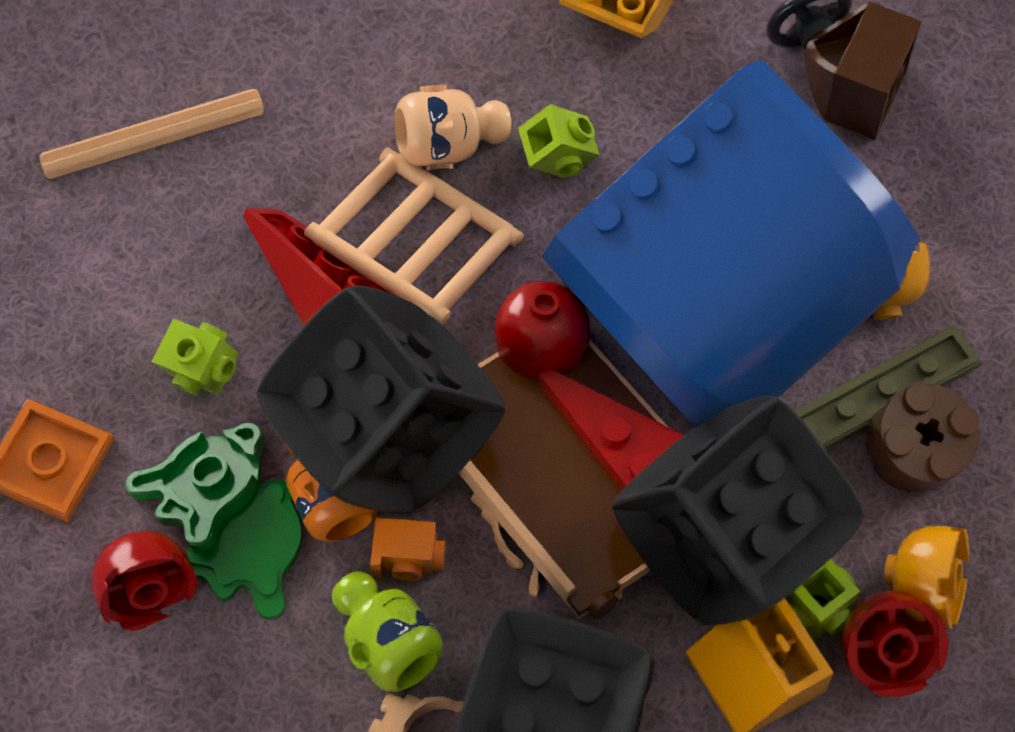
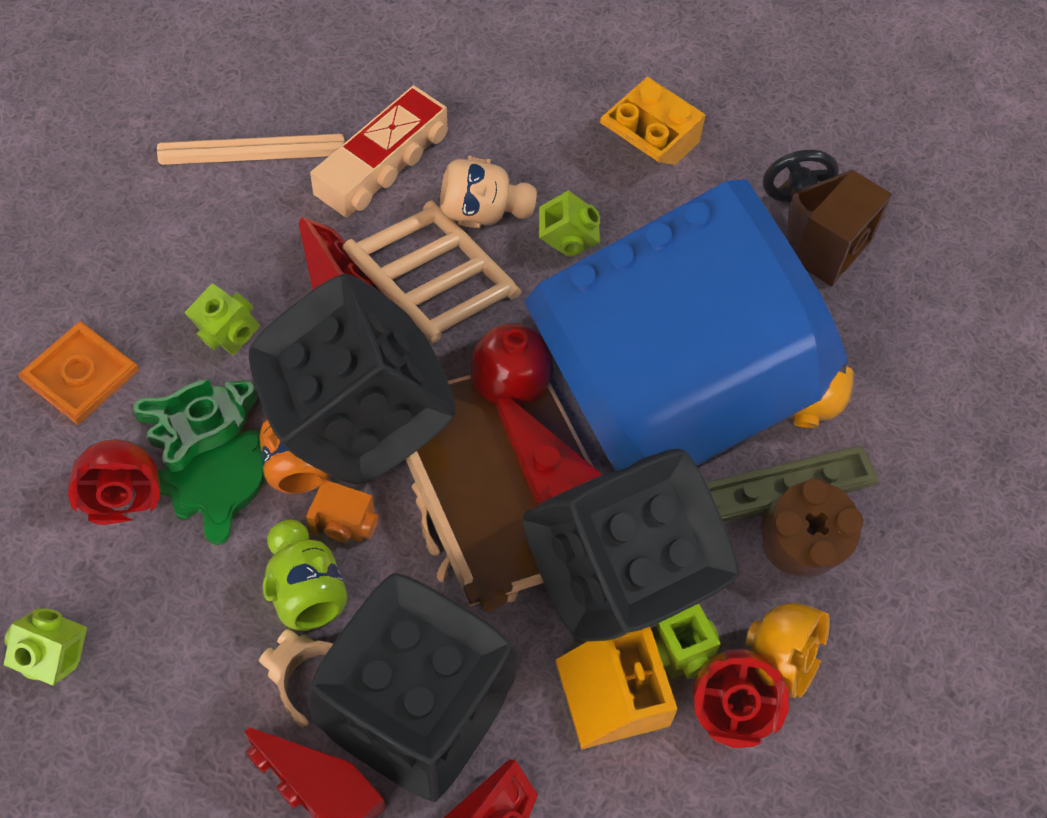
camera: 10 degrees right, 5 degrees down
(309, 100) = (380, 152): none -> light nougat brick

